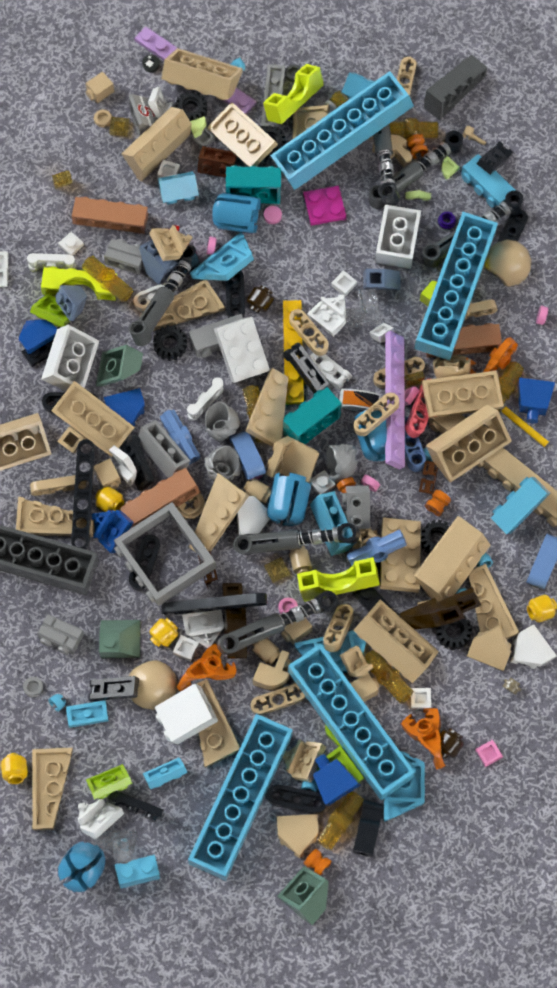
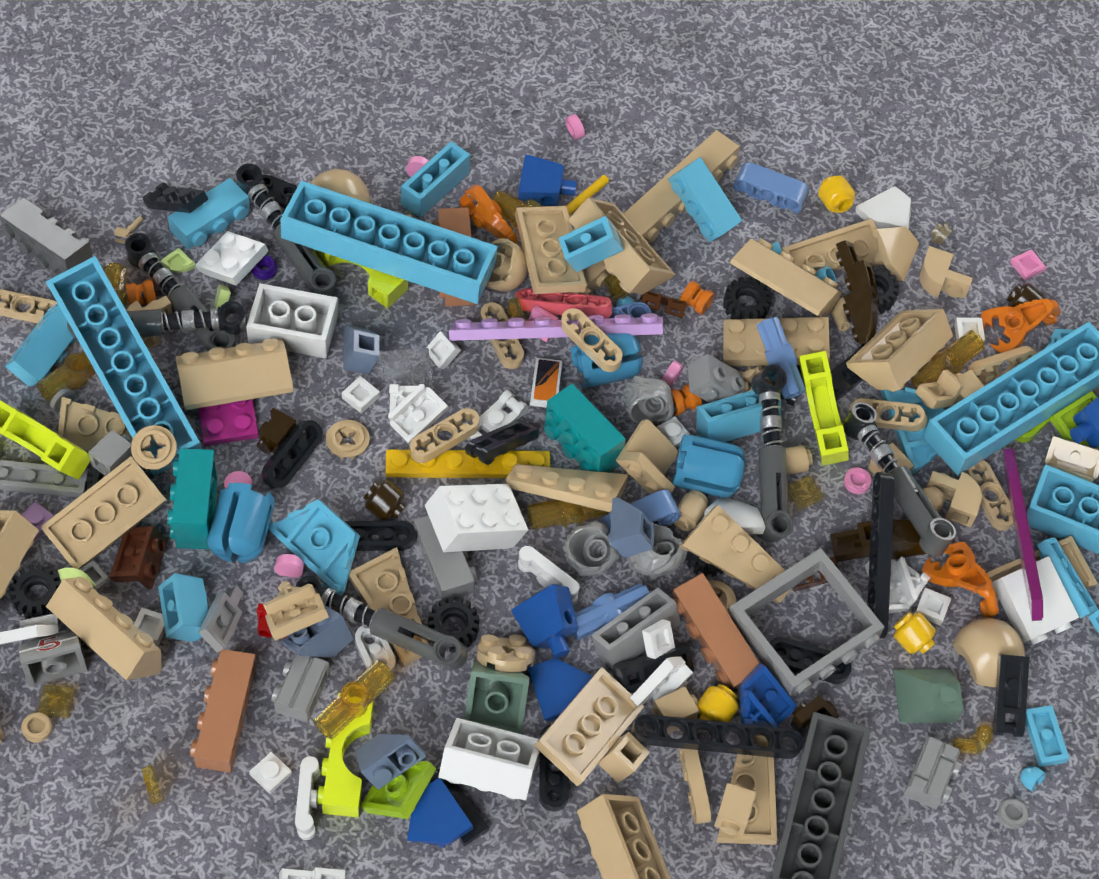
camera: 95 degrees left, 10 degrees down
(32, 502) = (734, 809): none -> tan brick
(83, 668) = (977, 742): none -> clear yellow arm
(107, 563) = (804, 712): none -> dark brown bracket
(151, 459) = (658, 639): none -> white plate
(153, 367) = (507, 654): none -> tan plate
(168, 395) = (548, 619): none -> blue torso
(169, 207) = (222, 618): none -> light grey hinge
(203, 738) = (1072, 583): none -> medium azure plate
(228, 438) = (630, 529): none -> sand blue slope
(230, 701) = (1023, 535): none -> magenta tile
(274, 151) = (143, 440): none -> tan gear
(282, 132) = (110, 452): none -> light grey brick
(288, 244) = (300, 450): none -> black plate
(309, 269) = (347, 428): none -> tan gear
(310, 233) = (275, 431): none -> dark brown brick
(350, 203) = (234, 374): none -> tan slope
(383, 707) = (992, 363): none -> tan beam
(451, 198) = (231, 258): none -> white plate
(454, 410) = (590, 244): none -> medium azure brick
(473, 677) = (936, 276): none -> tan brick
(528, 323) = (435, 179): none -> medium azure brick

